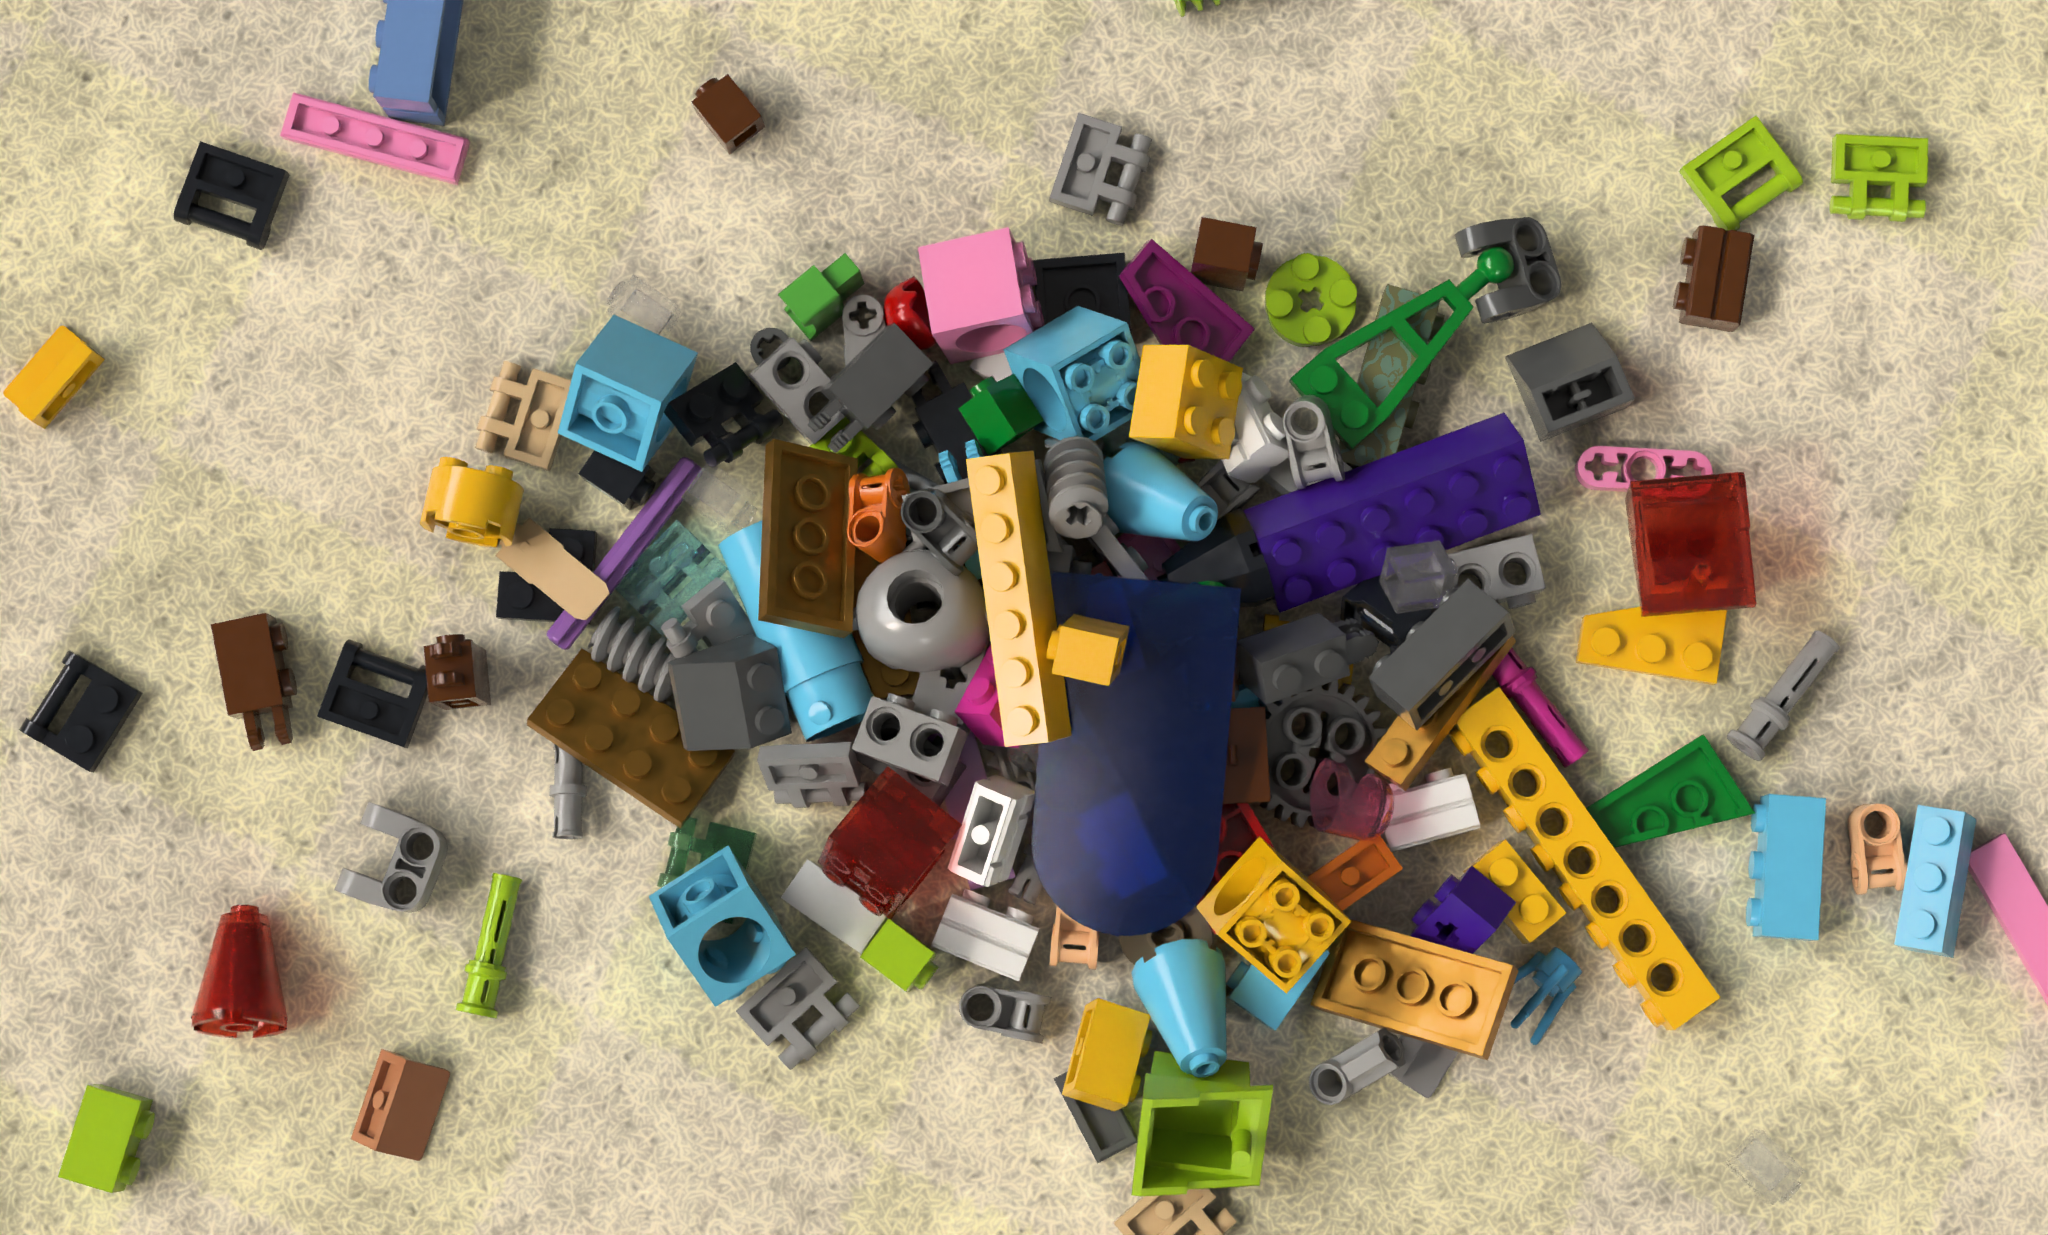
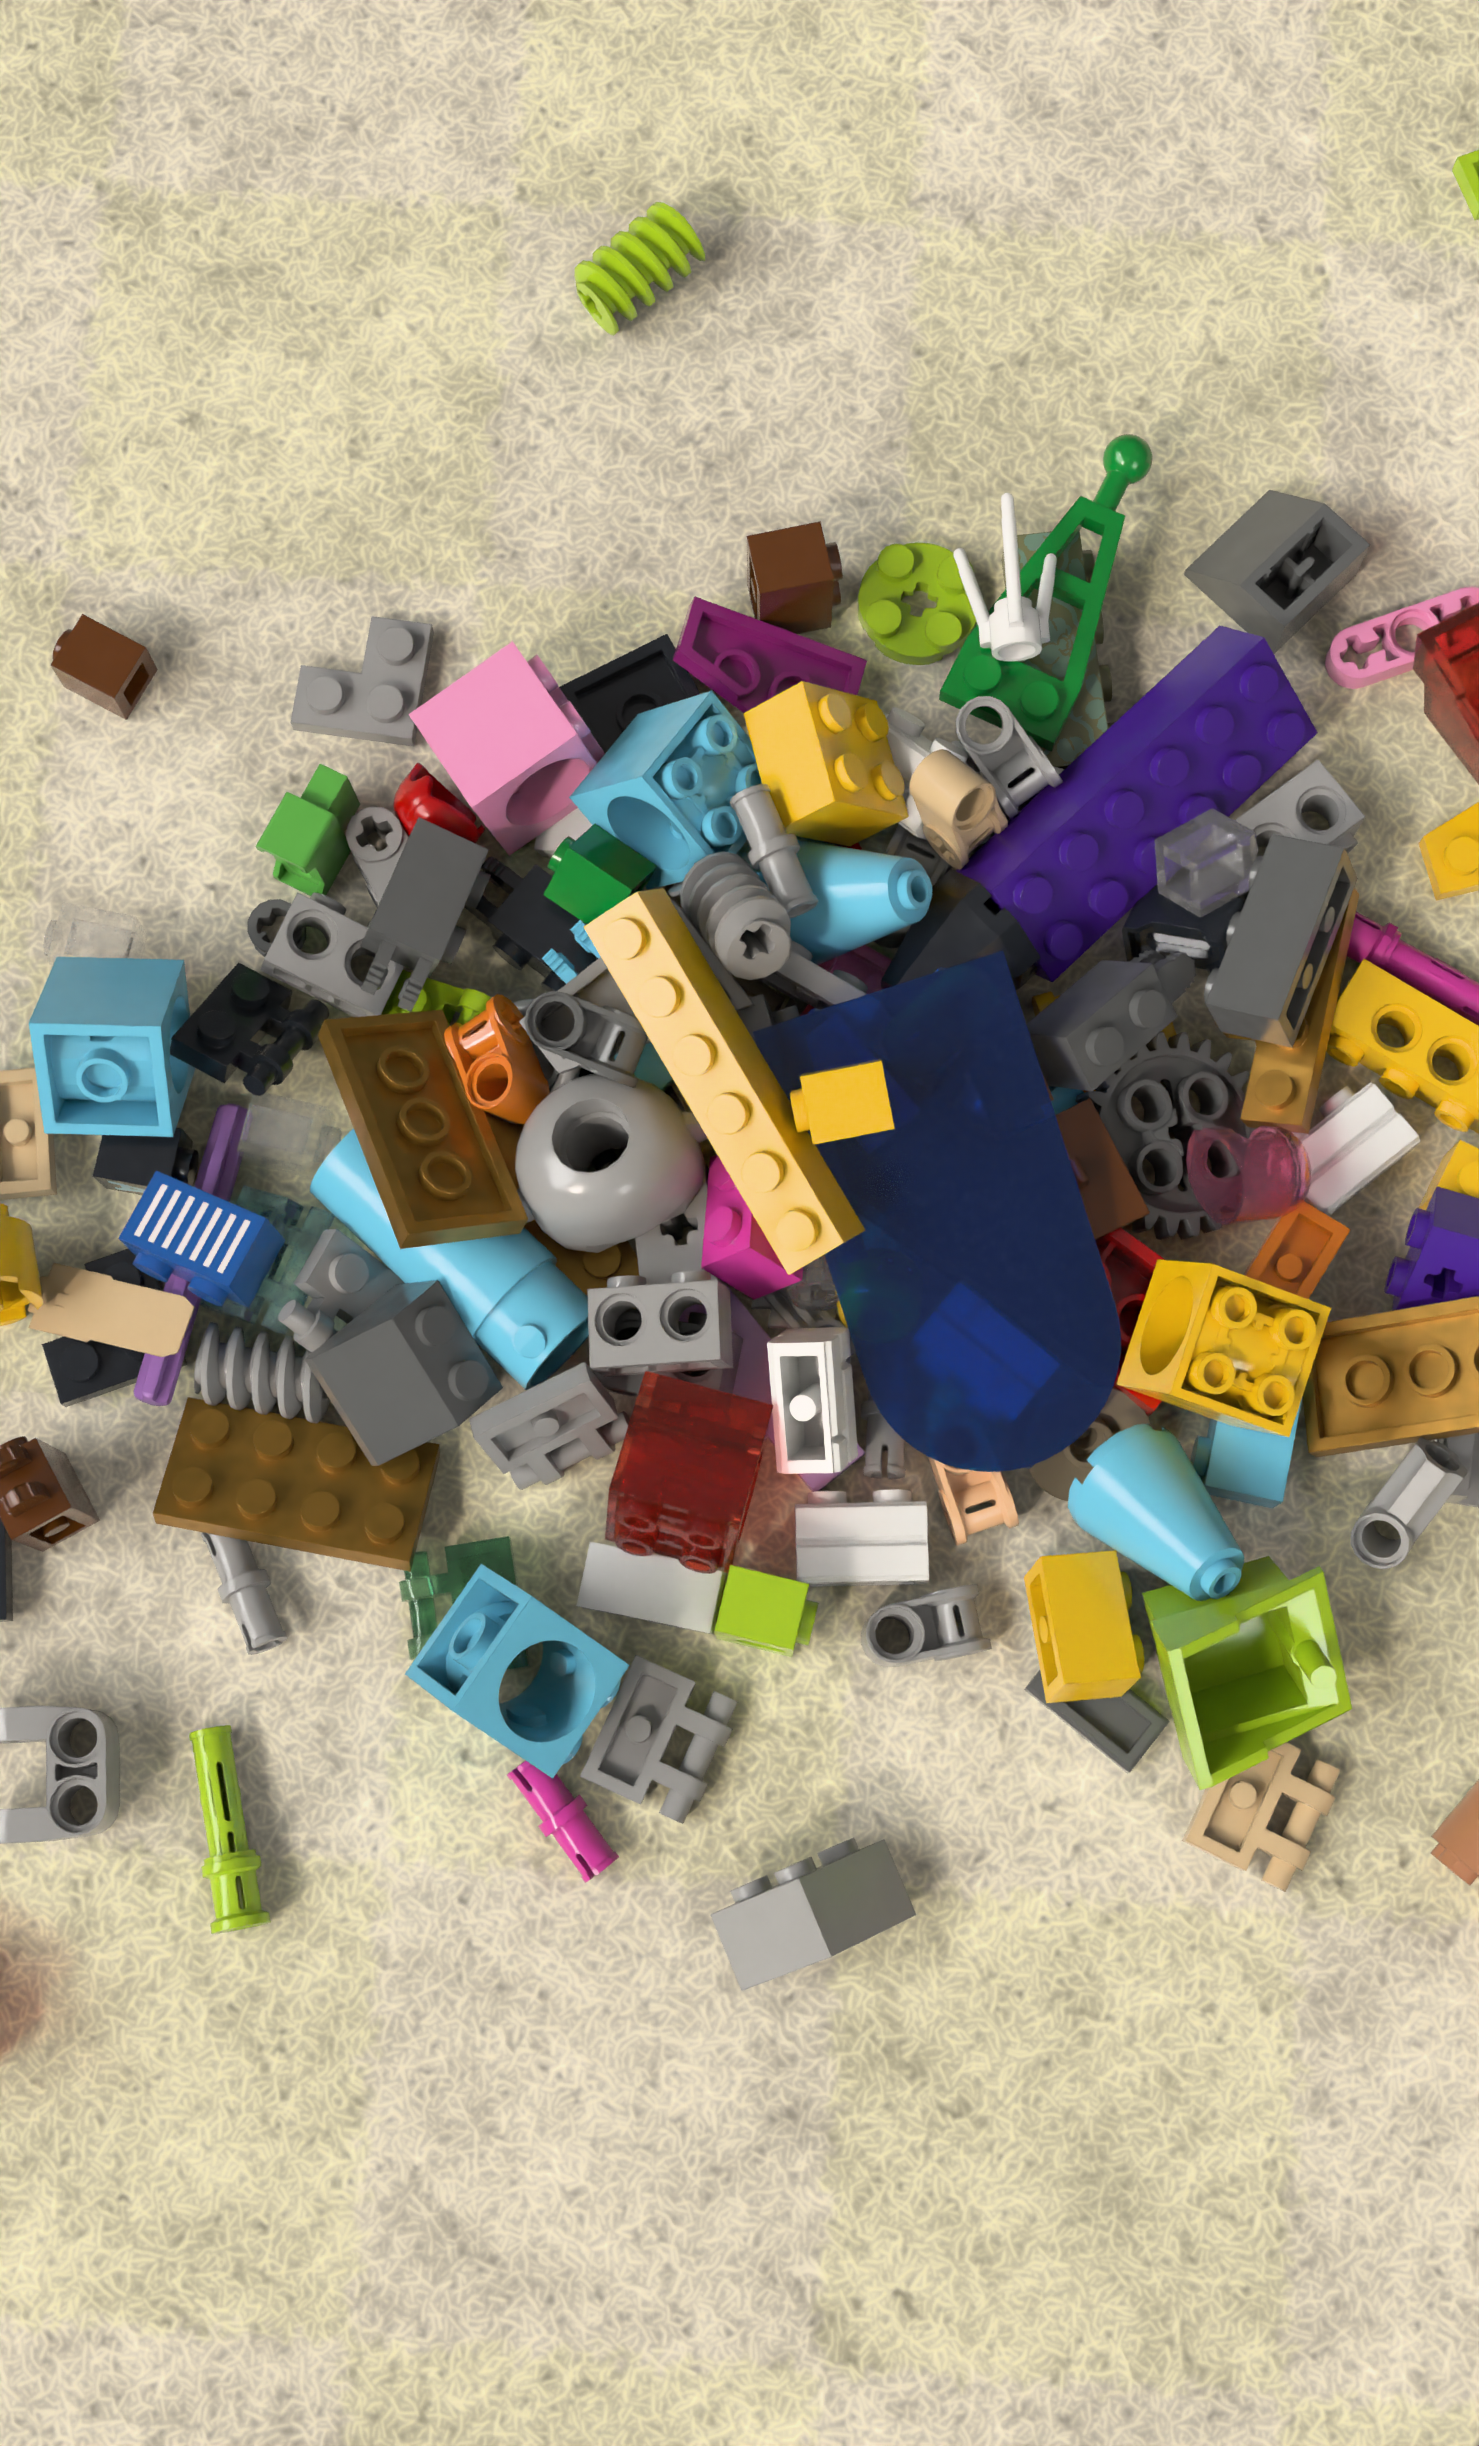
camera: 25 degrees left, 5 degrees down
(400, 1106) = (190, 2094): nougat panel -> none
(632, 551) = (201, 1240): none -> blue brick
(714, 1035) = (564, 1819): none -> dark pink pin
(849, 1163) = (811, 1911): none -> light grey brick
(905, 215) = (378, 699): none -> light grey plate
(1086, 165) = (574, 550): light grey plate -> none
(1121, 452) = (773, 849): none -> light grey pin
(1260, 468) = (954, 806): none -> tan piece
(1358, 357) = (1015, 627): none -> white plant
(1535, 272) = (1180, 456): dark grey piece -> none
(1714, 278) = (1392, 378): reddish brown brick -> none
(1733, 162) = (1349, 242): lime plate -> none

